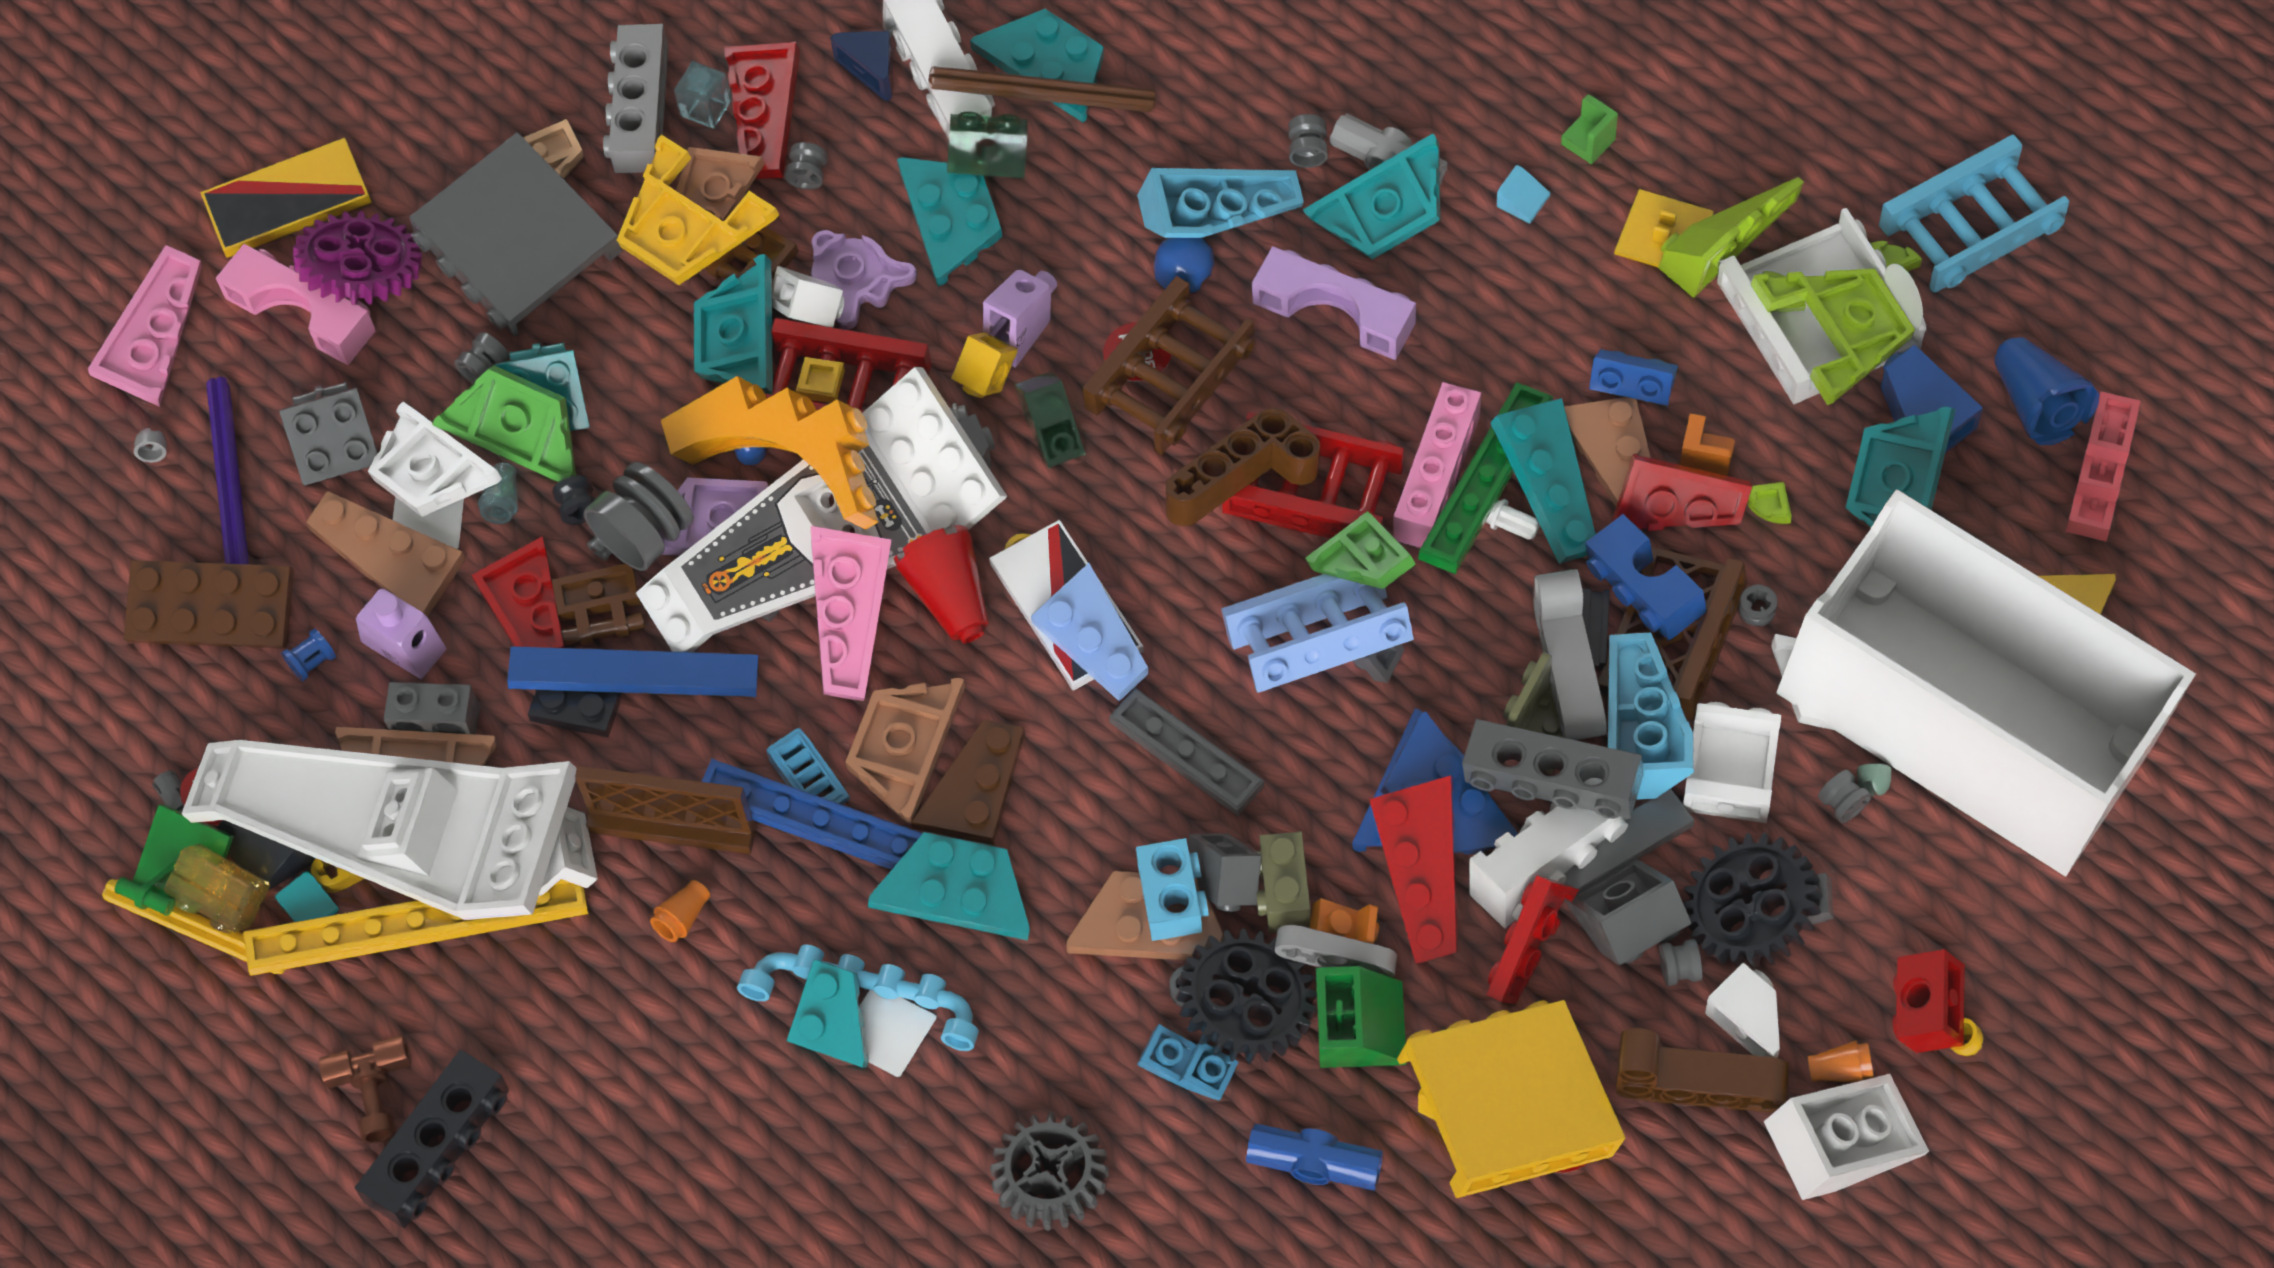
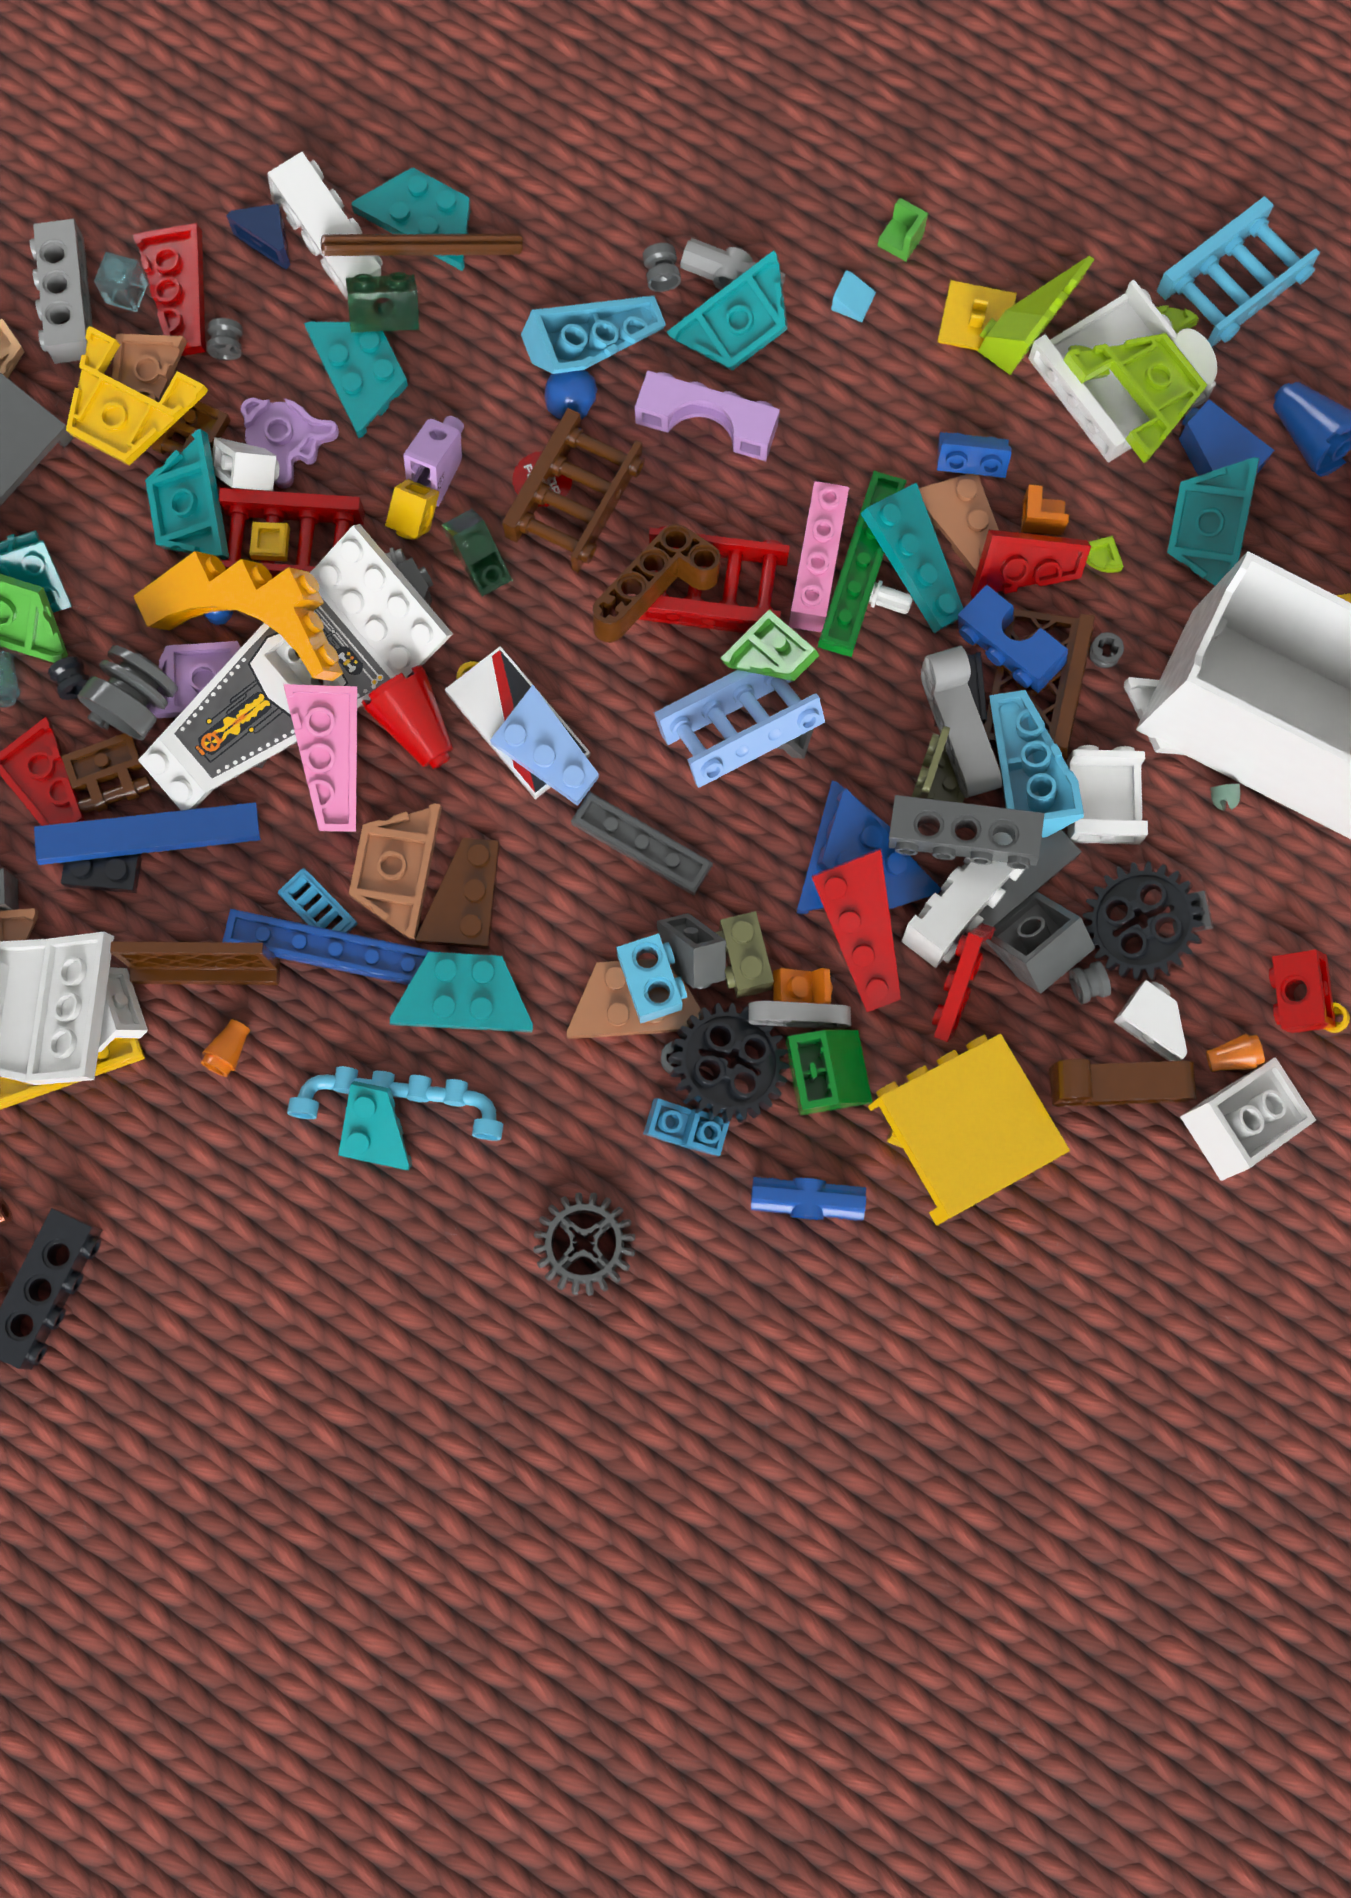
camera: 15 degrees left, 15 degrees up
(893, 1031) = (428, 1131): white sticker -> none
(1844, 796) = (1205, 815): dark grey wheel -> none

